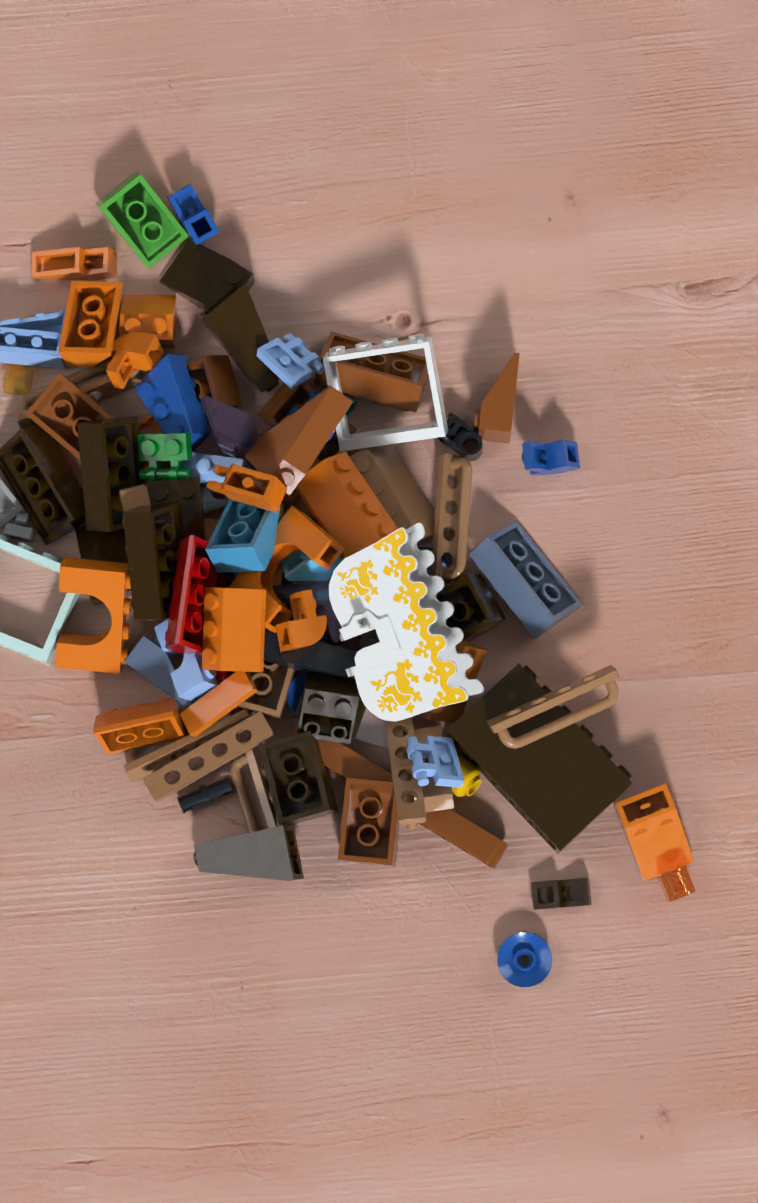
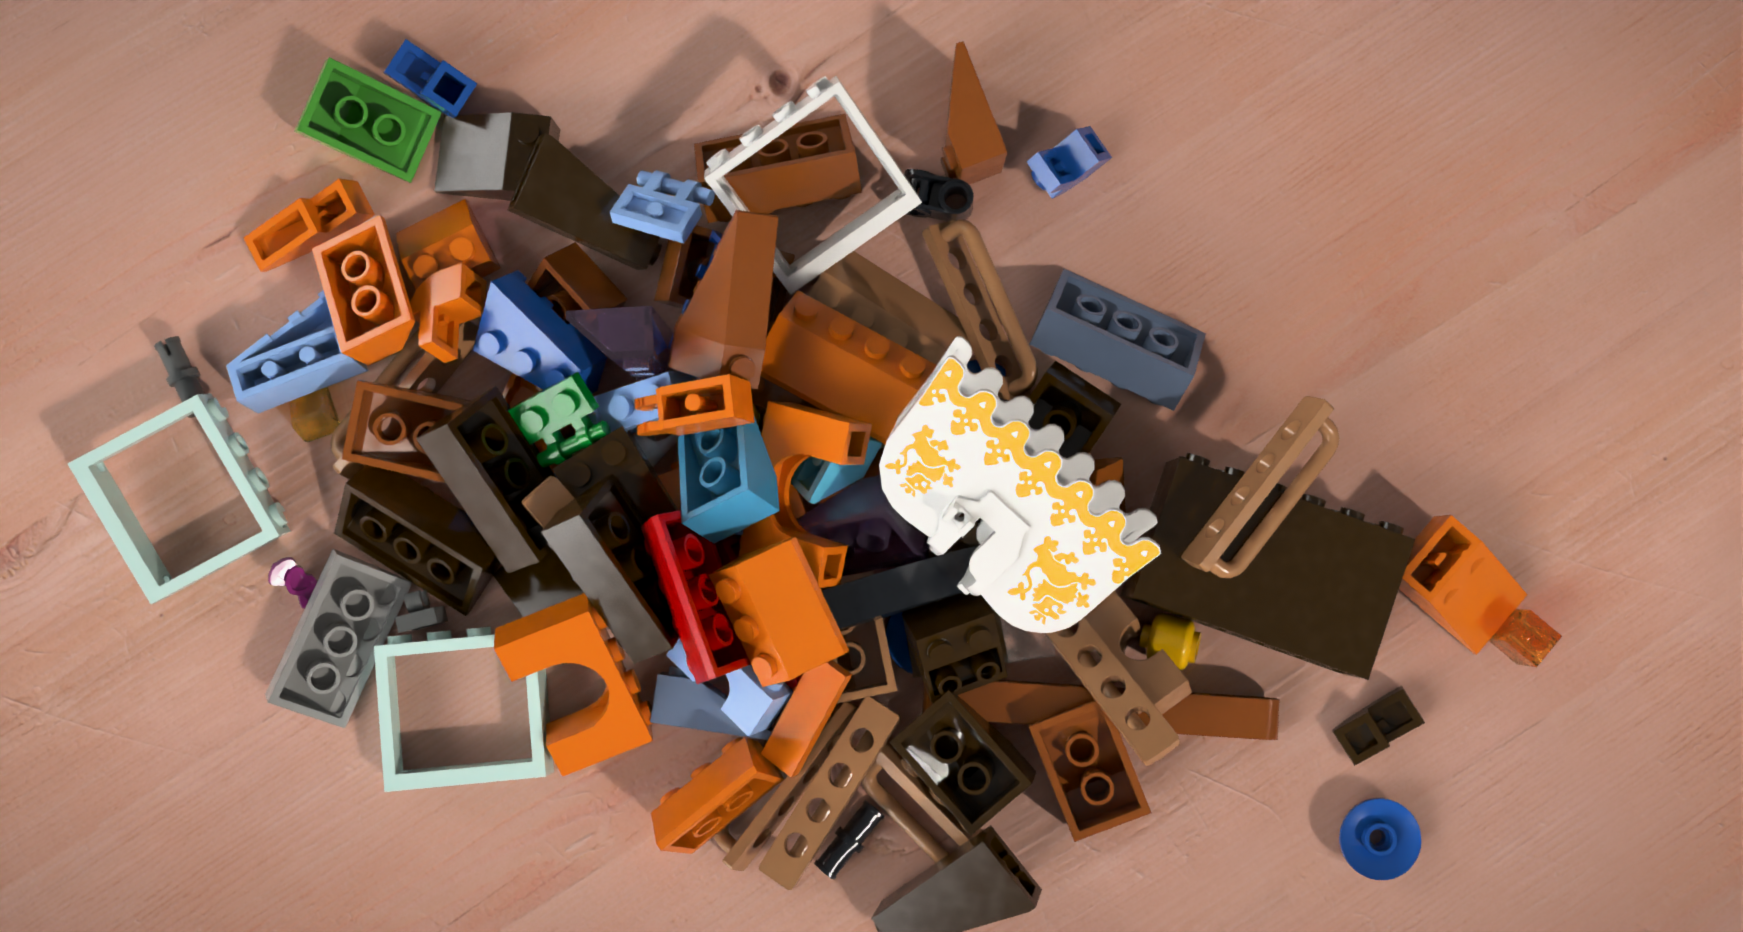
camera: 30 degrees left, 5 degrees up
(306, 627) = (876, 559): orange brick -> none
(442, 760) = (1152, 642): light blue plate -> none

